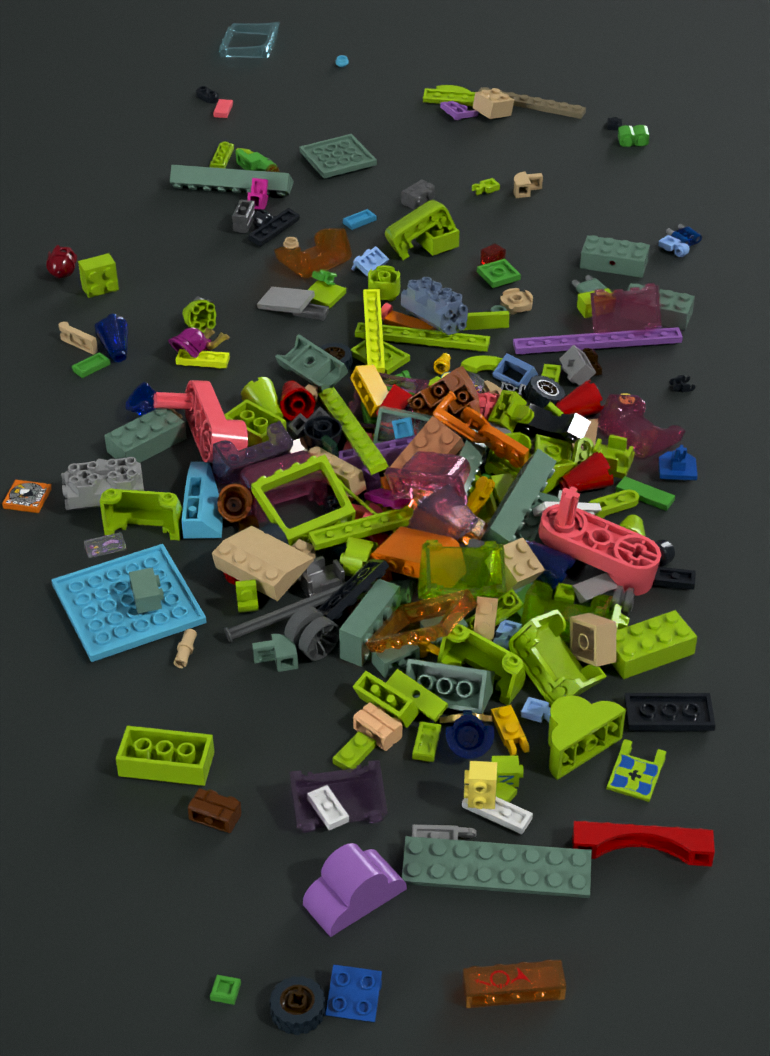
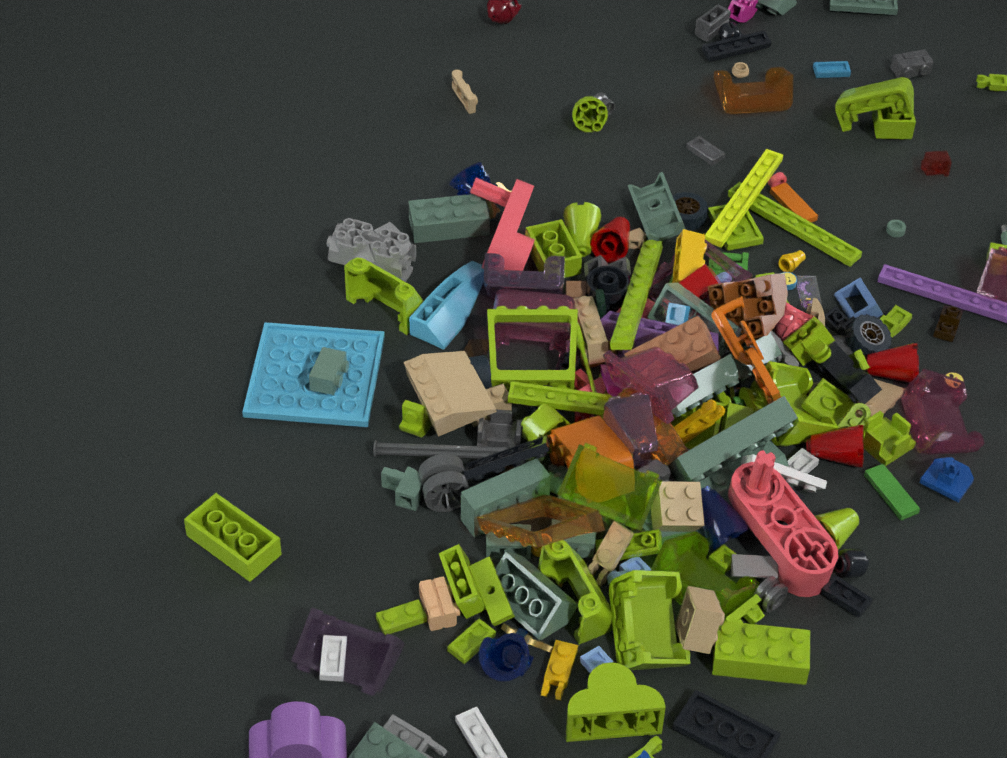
camera: 30 degrees right, 5 degrees up
(26, 496) = (306, 231): tile -> none
(90, 365) = (457, 123): bright green tile -> none
(98, 275) = (525, 34): lime brick -> none
(105, 545) = (337, 309): clear tile -> none
(114, 336) = (494, 103): clear blue cone -> none
(185, 648) = (329, 443): tan pin -> none
(195, 341) = (562, 137): magenta helmet -> none
(204, 359) = (562, 159): neon yellow plate -> none
(214, 810) = (237, 609): reddish brown brick -> none
(237, 495) = (466, 318): dark orange helmet -> none
(285, 299) = (687, 129): light grey tile -> none
(324, 275) = (744, 119): bright green plate -> none
(326, 294) = (732, 137): lime tile -> none
(369, 260) = (804, 120): light blue bracket -> none
(386, 280) = (797, 149): lime brick -> none
(435, 305) = (824, 195): sand blue brick -> none
(479, 363) = (828, 276): lime tile -> none
(482, 784) = (474, 710): light yellow brick -> none
(487, 320) = (870, 231): lime tile -> none
(498, 273) = (929, 185): bright green plate -> none
(505, 791) = (503, 727): lime tile -> none
(508, 769) = (519, 708): lime brick -> none
(516, 301) = (916, 228): tan plate -> none
(577, 366) = (927, 322): light grey brick -> none
(616, 502) = (849, 487): lime plate -> none

